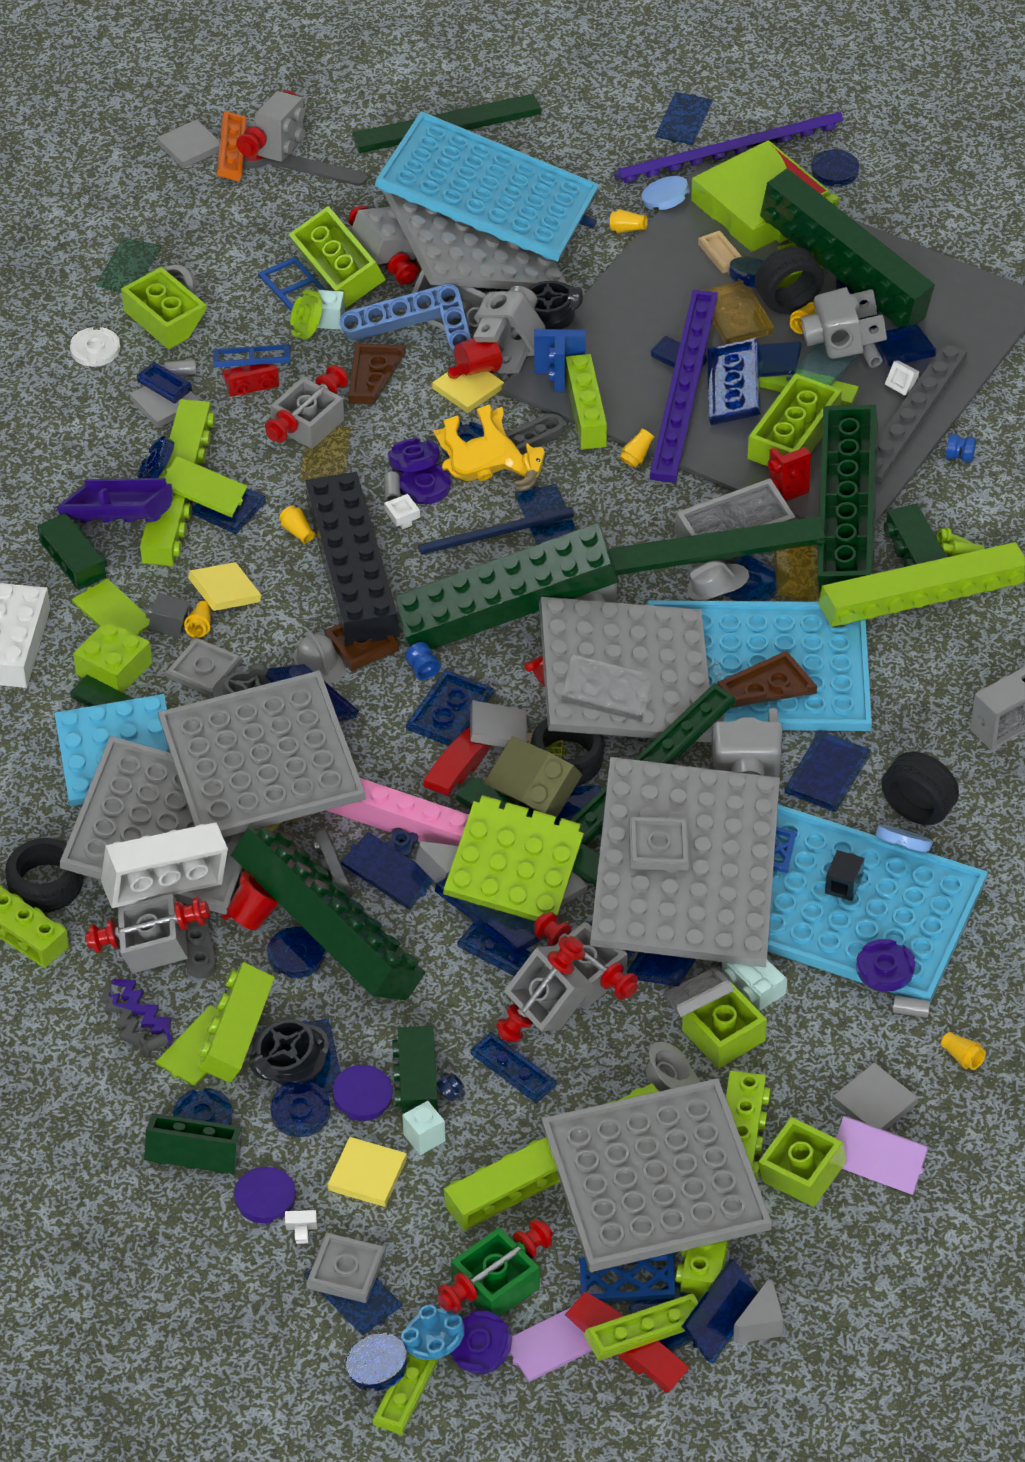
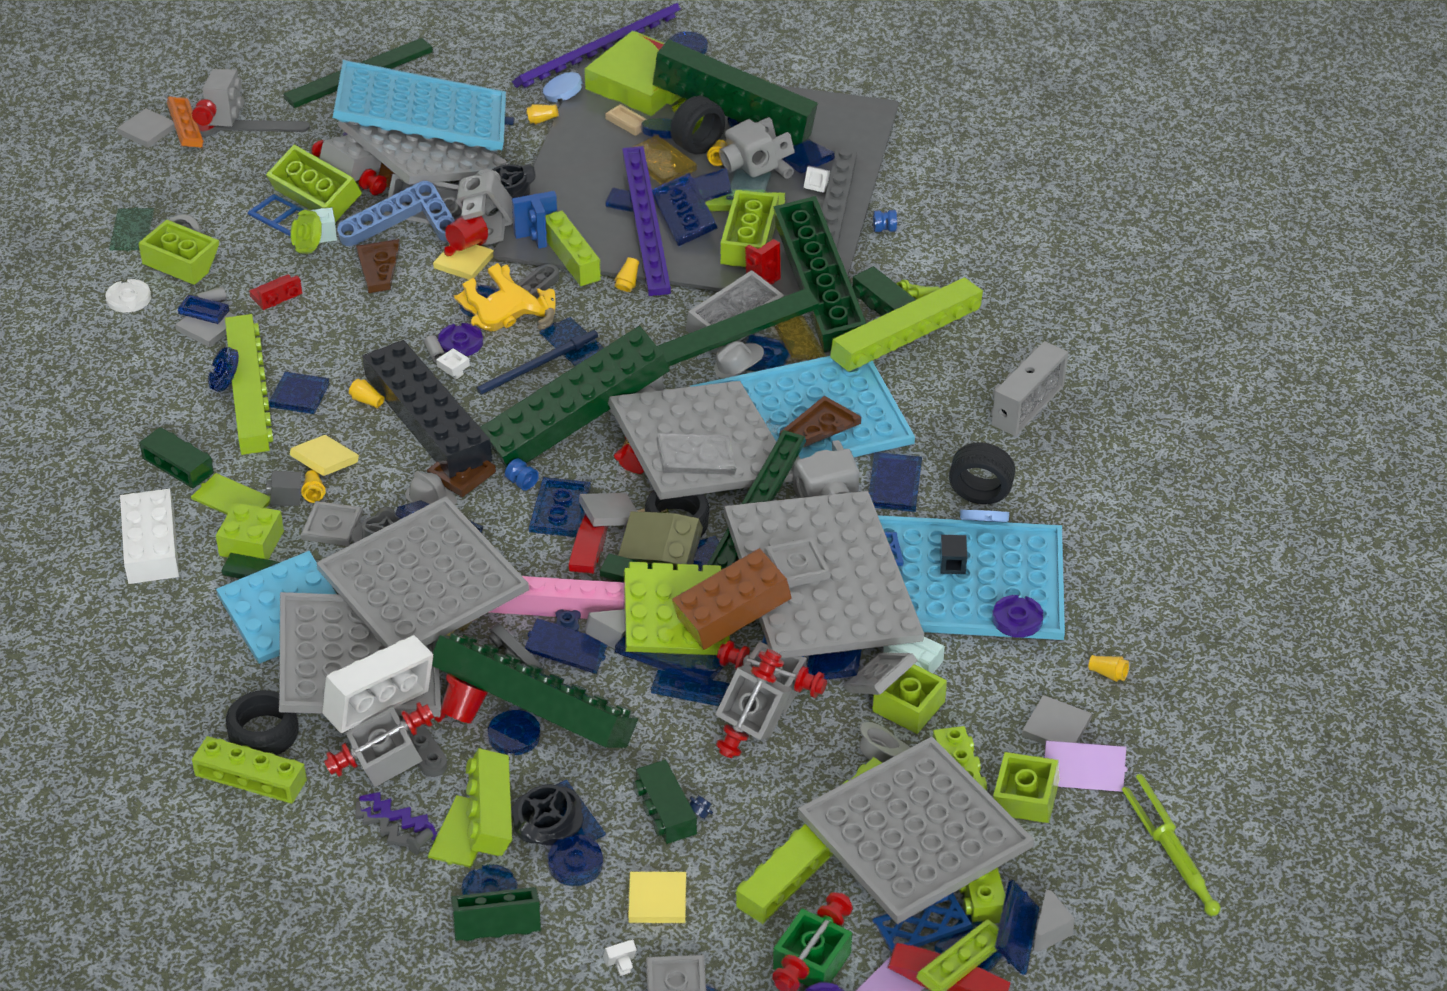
camera: 20 degrees left, 5 degrees down
(118, 500) = (205, 405): dark purple container -> none
(205, 486) = (274, 380): lime piece -> none
(251, 361) = (270, 275): blue window -> none
(264, 1194) = (575, 941): dark purple tile -> none
(309, 409) = (341, 302): light grey brick -> none
(328, 456) = (364, 333): clear yellow piece -> none
(362, 1092) = (624, 832): dark purple tile -> none
(413, 455) = (442, 320): dark purple tile -> none
(424, 1127) = (693, 846): light aqua brick -> none
(513, 1067) = (744, 777): clear blue tile -> none
(567, 867) = (732, 598): none -> dark orange brick
(684, 118) = (550, 33): clear blue piece -> none
(911, 1006) = (1051, 644): light grey piece -> none
(933, 1263) = (1173, 846): none -> lime piece

